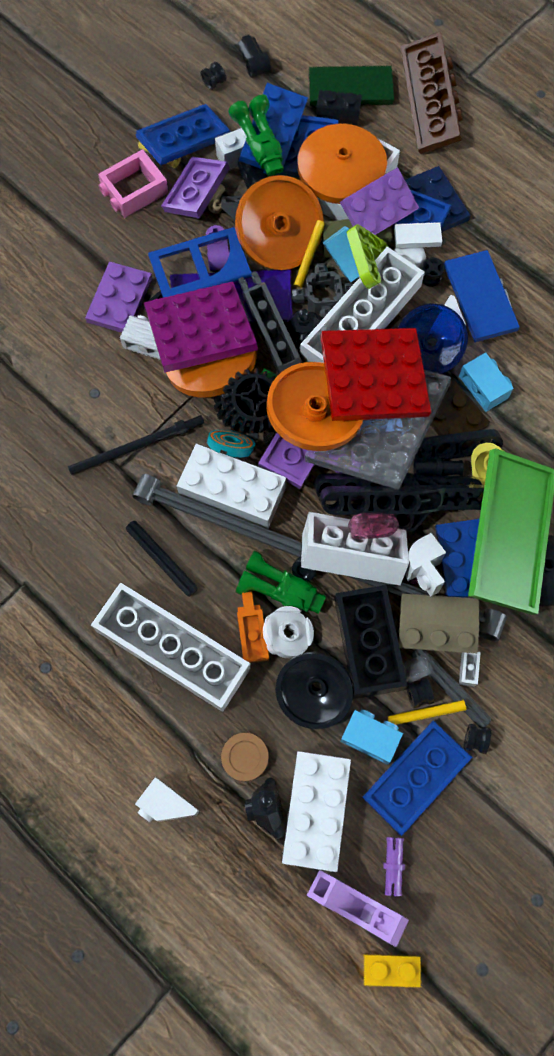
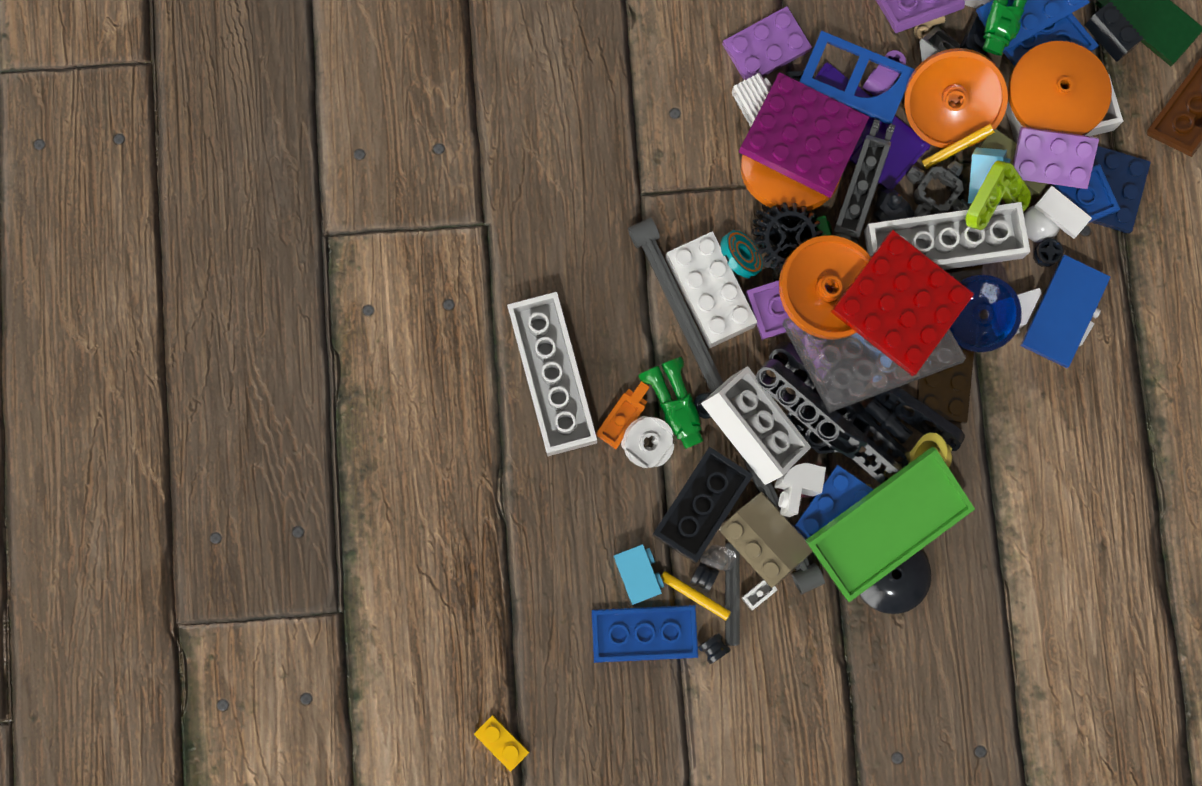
camera: 40 degrees right, 10 degrees up
(161, 558) = (606, 298): black axle -> none
(163, 803) = (446, 482): white slope -> none
(180, 428) = (715, 204): black bar -> none
(244, 757) = (533, 503): medium nougat piece -> none
(266, 808) = (515, 553): black rock -> none
(309, 705) = (614, 506): black dish -> none
(316, 811) = (548, 588): white brick -> none
(358, 908) = (515, 679): lavender arch -> none
(373, 525) = (784, 421): clear pink plate -> none
(394, 866) = (568, 677): medium lavender pin -> none
(486, 381) = (997, 386): medium azure brick -> none

